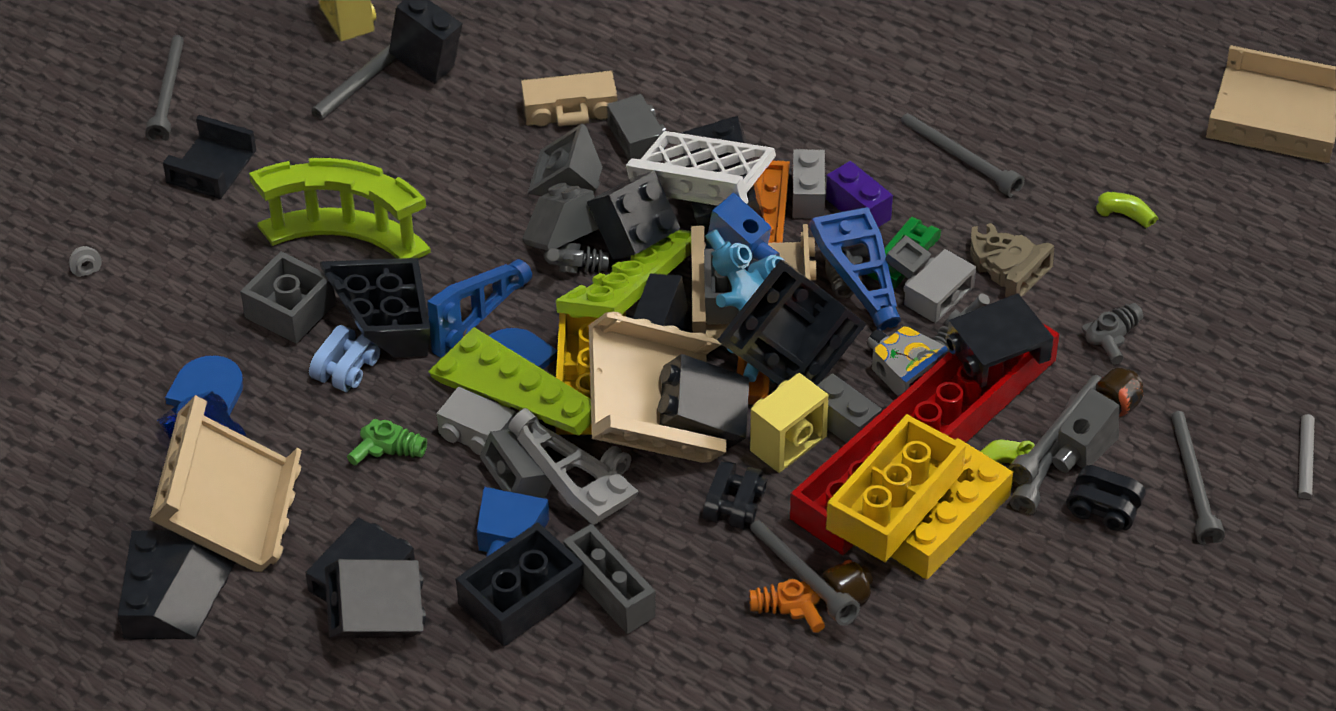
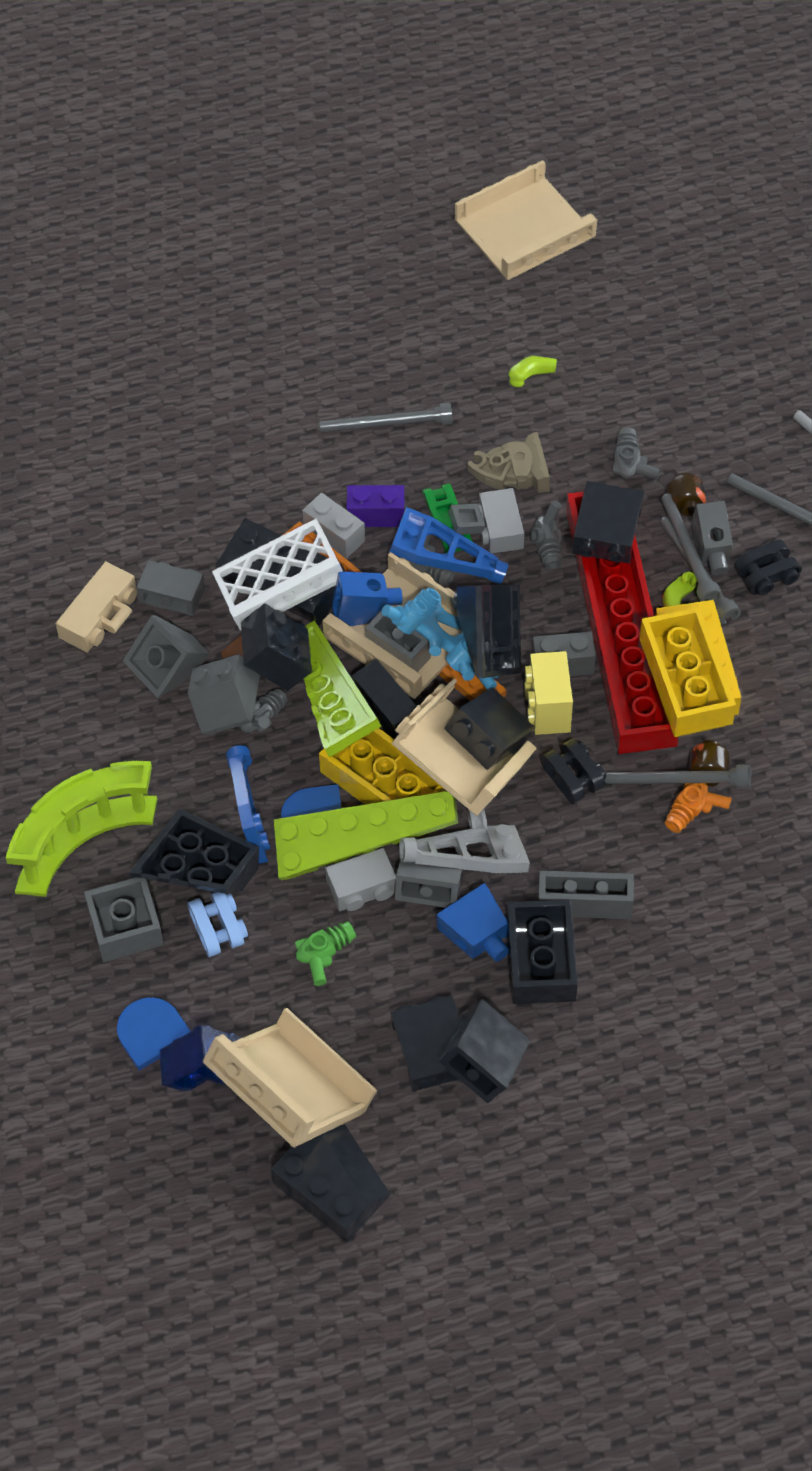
camera: 50 degrees left, 10 degrees up
(903, 357) = (550, 588): torso -> none

